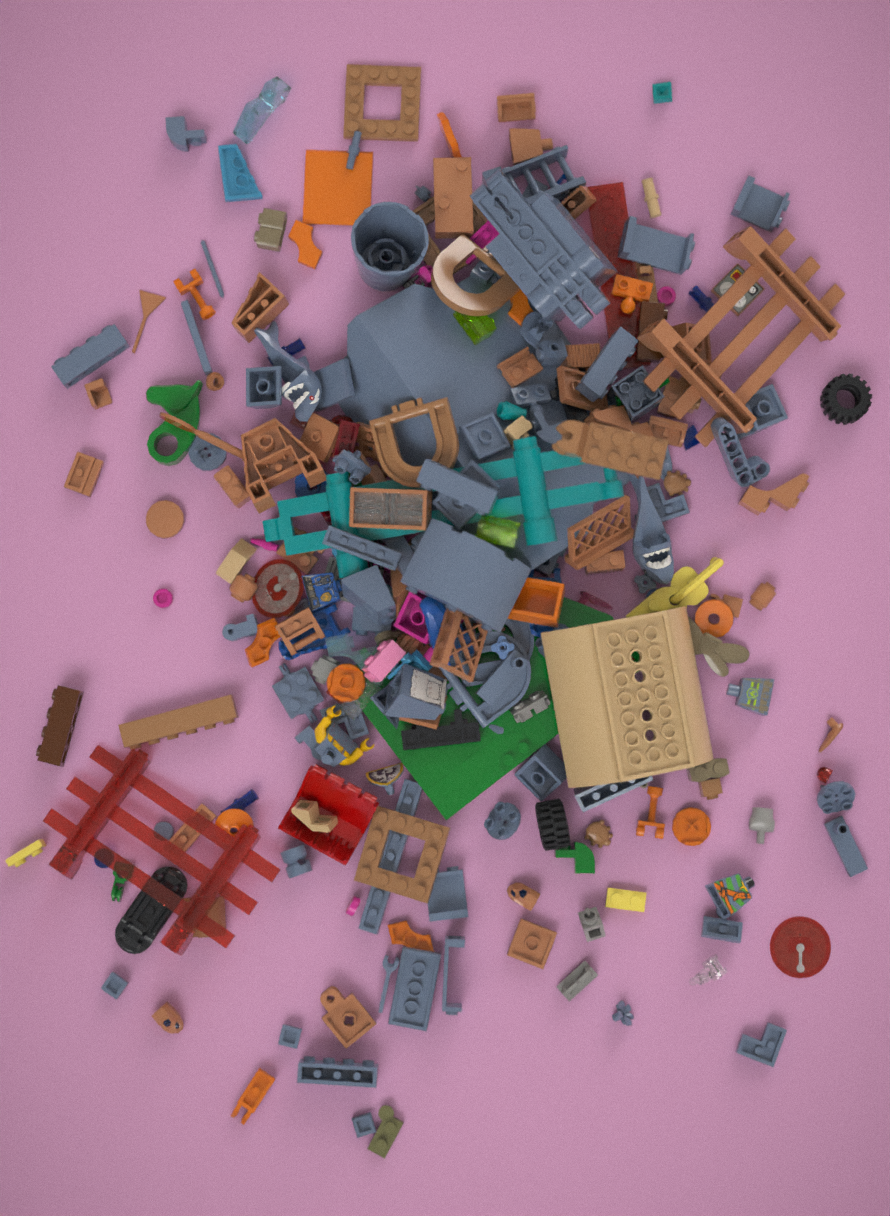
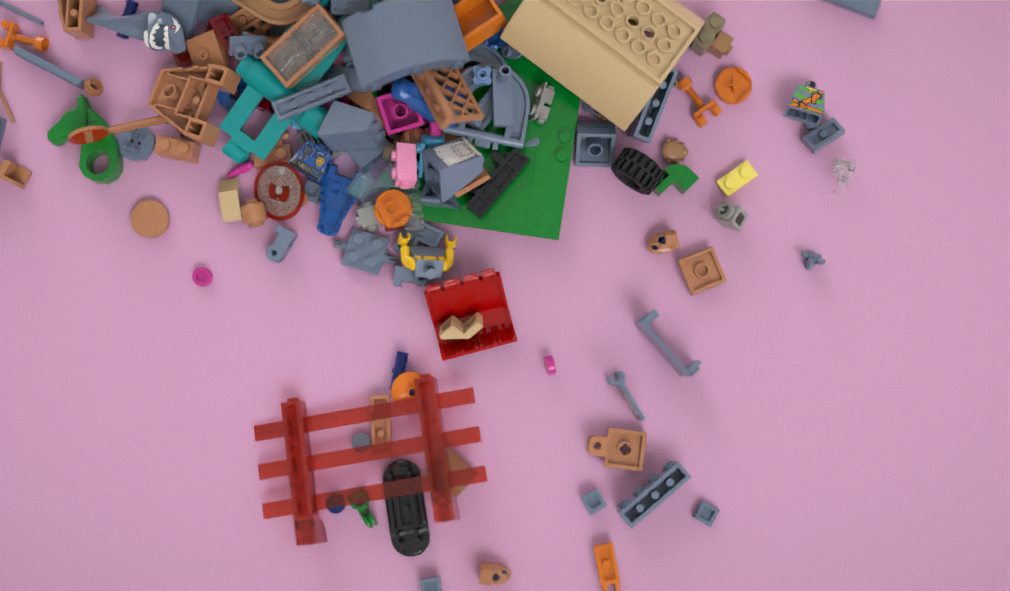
camera: 45 degrees left, 0 degrees up
(33, 849) = (272, 563): light yellow plate -> none
(59, 726) = (211, 438): reddish brown brick -> none
(83, 474) = (58, 241): nougat plate -> none
(178, 721) = (297, 353): medium nougat brick -> none
(259, 650) = (302, 229): orange tile -> none
(264, 387) = (132, 55): sand blue slope -> none
(296, 861) = (478, 371): sand blue wheel -> none
(297, 625) = (318, 200): nougat plate -> none
(386, 776) = (486, 250): shield -> none
(386, 1131) = (727, 503): olive hinge -> none
(391, 859) = (543, 304): sand blue plate -> none
(402, 934) = (604, 351): orange tile -> none
(414, 988) = (649, 381): sand blue tile -> none
(435, 840) = (585, 300): medium nougat plate -> none
(448, 896) = (607, 294): sand blue panel -> none
(502, 814) = (601, 211): sand blue plate -> none
(577, 980) = (757, 267): light grey hinge -> none
(762, 822) = (778, 35): light grey piece -> none
(763, 1050) = (932, 188): sand blue plate -> none
(800, 947) = (886, 98): clear red piece -> none

